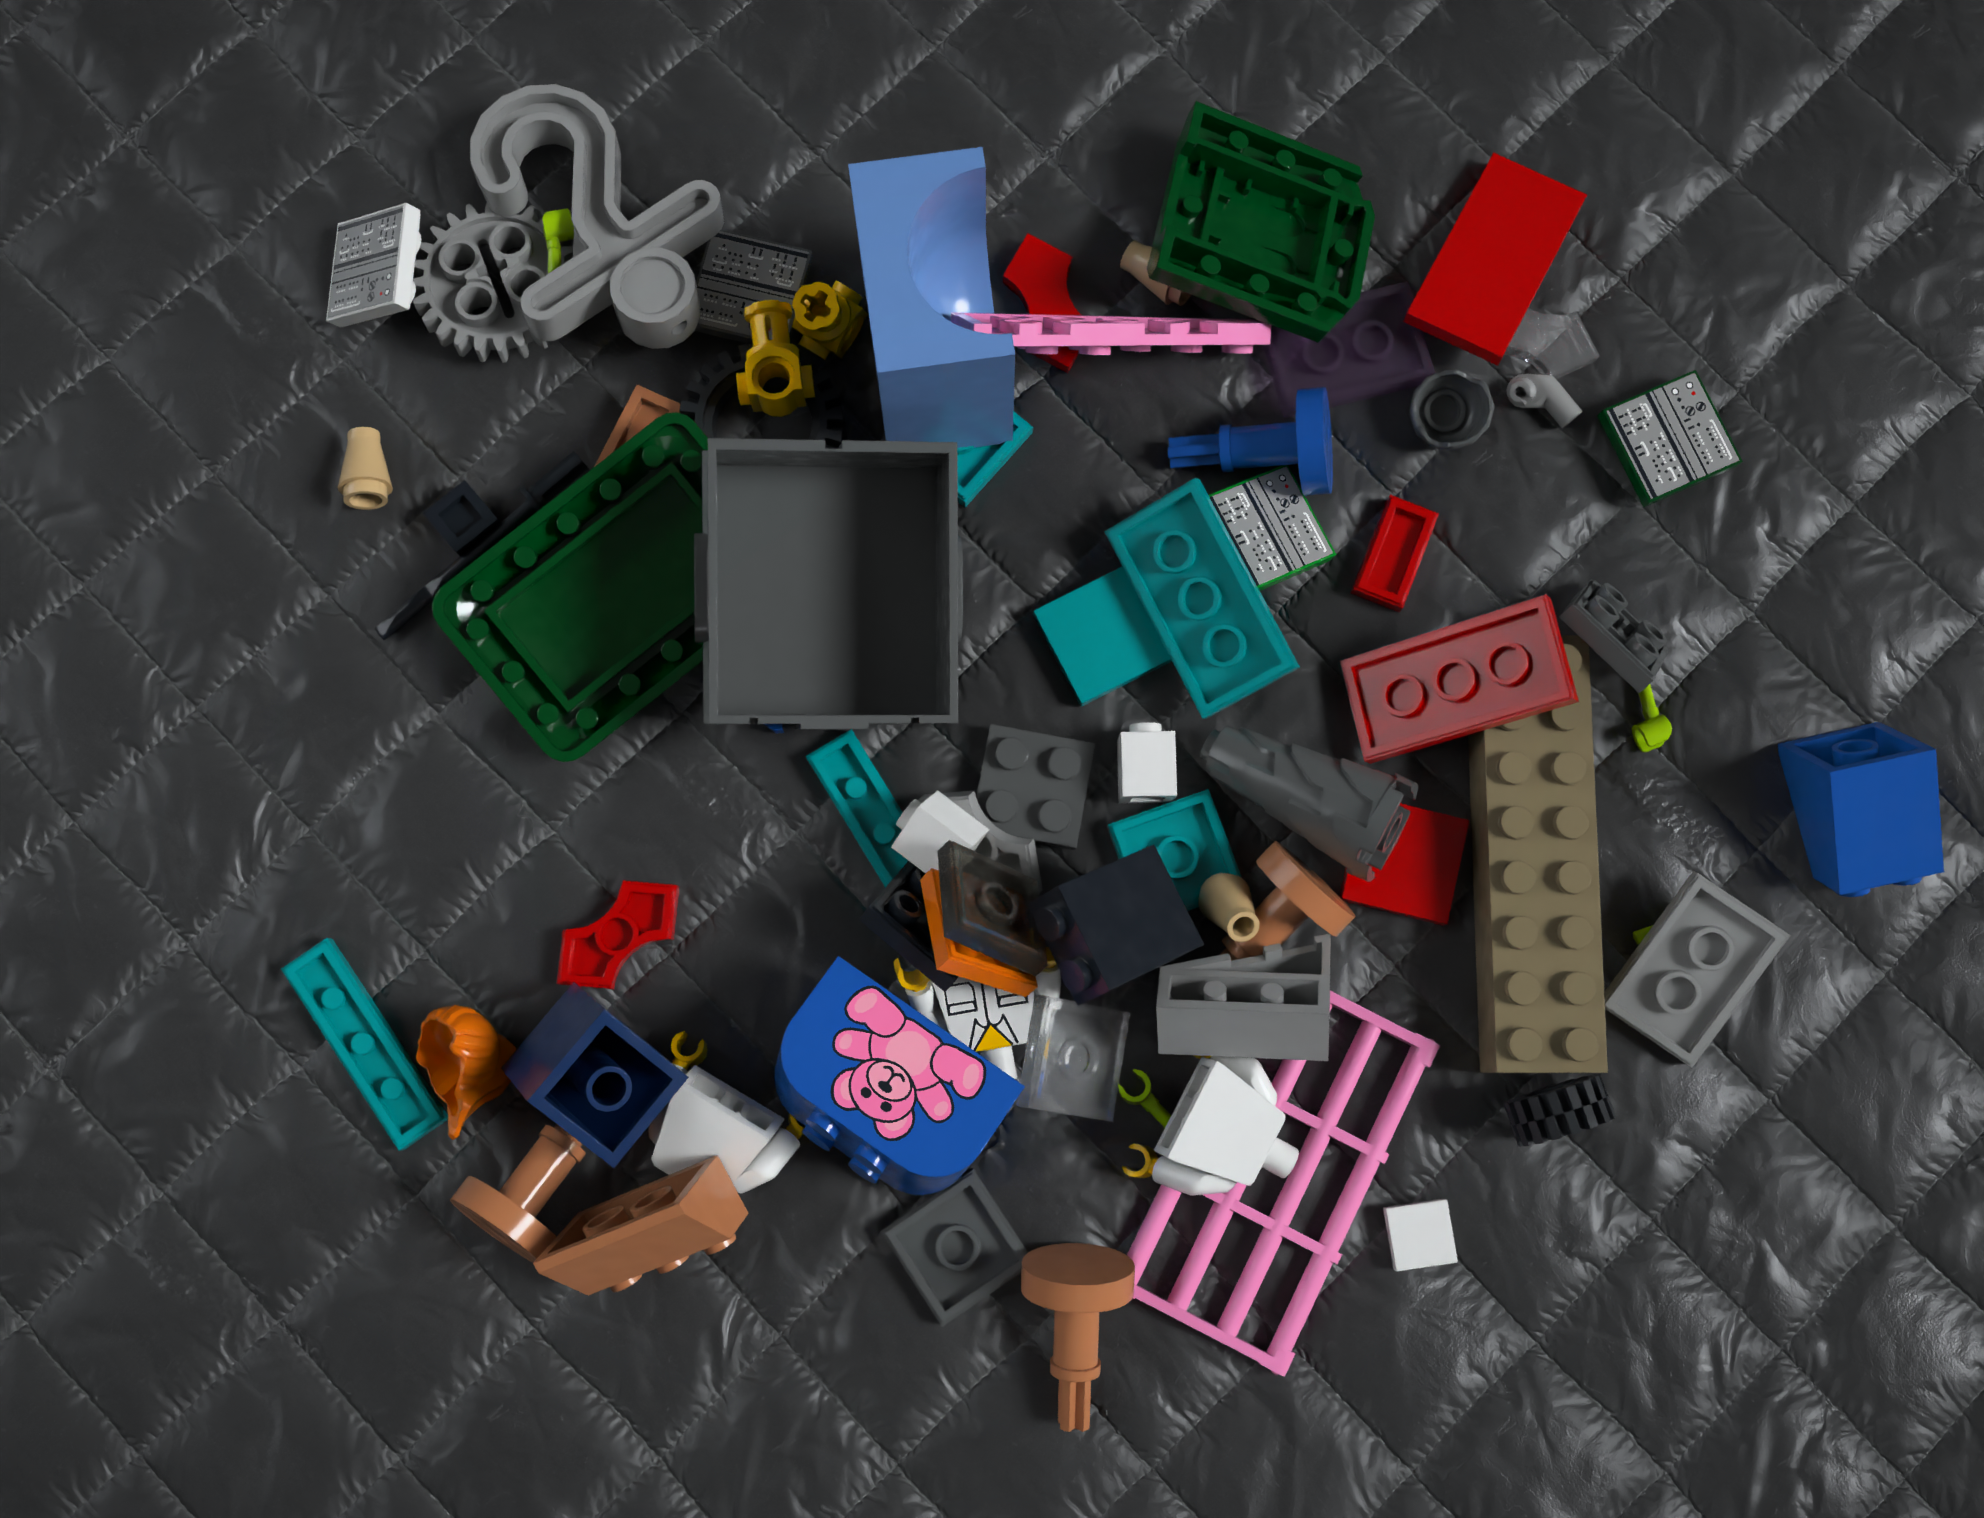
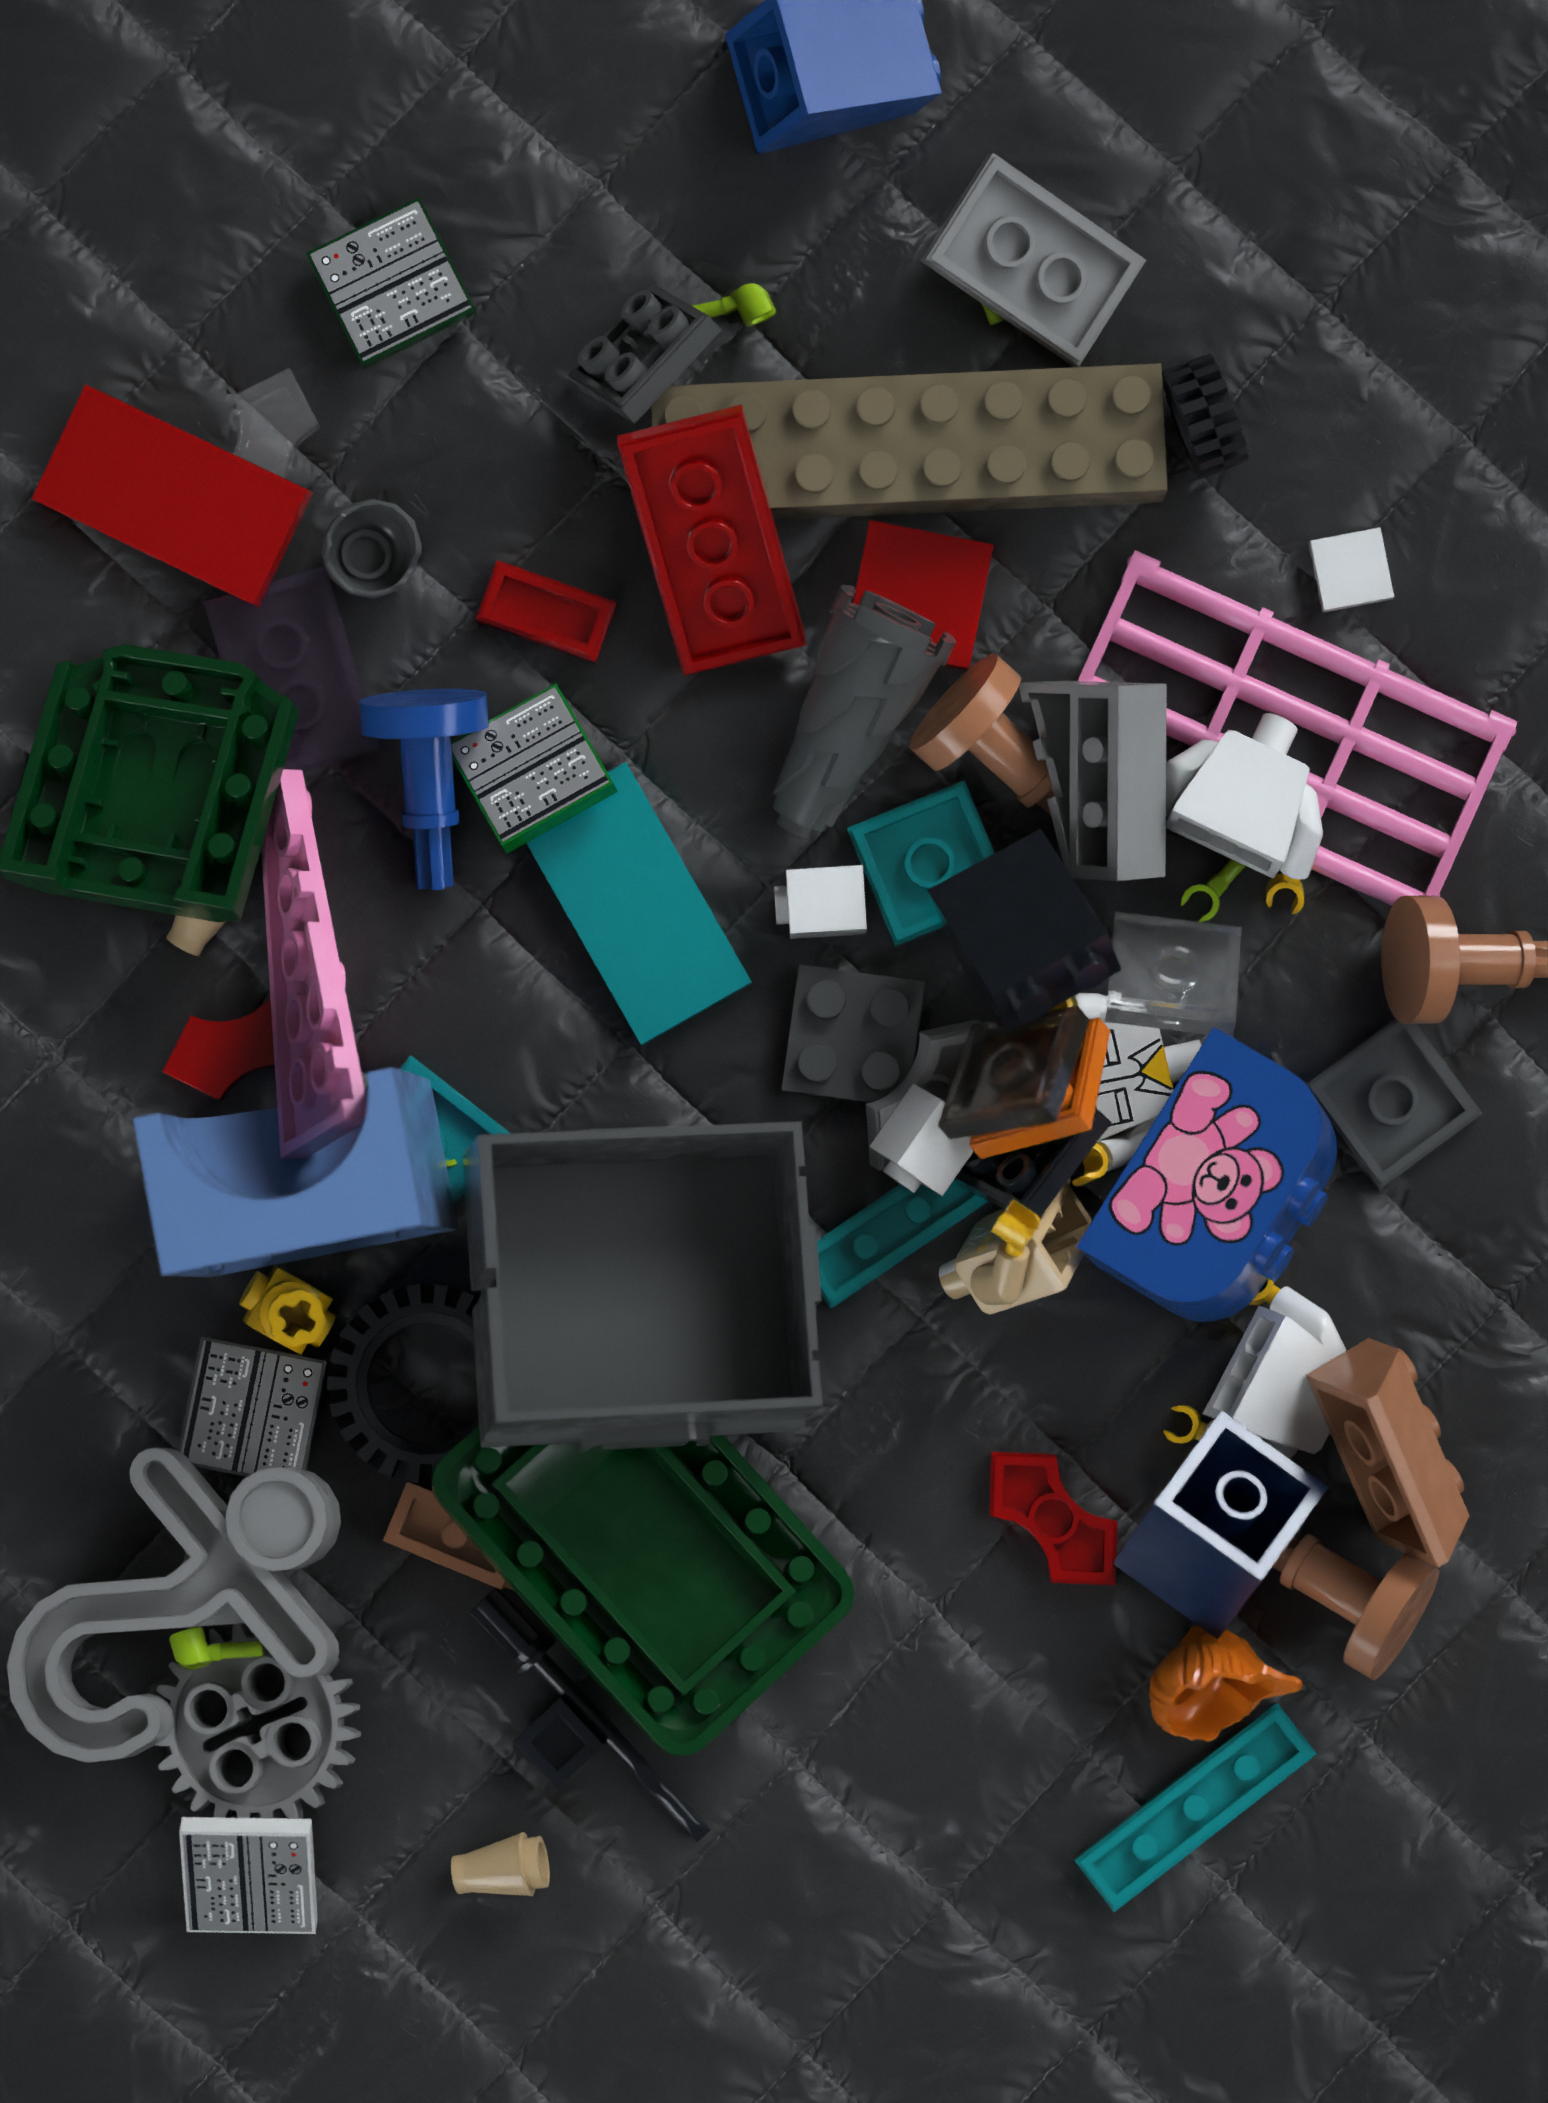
camera: 85 degrees left, 5 degrees up
(771, 360) = (356, 1369): yellow connector -> none
(828, 908) = (1018, 1255): none -> tan torso
(1201, 598) = (624, 843): teal tile -> none
(1229, 905) = (987, 800): tan cone -> none
(1543, 392) = (337, 435): light grey arm -> none

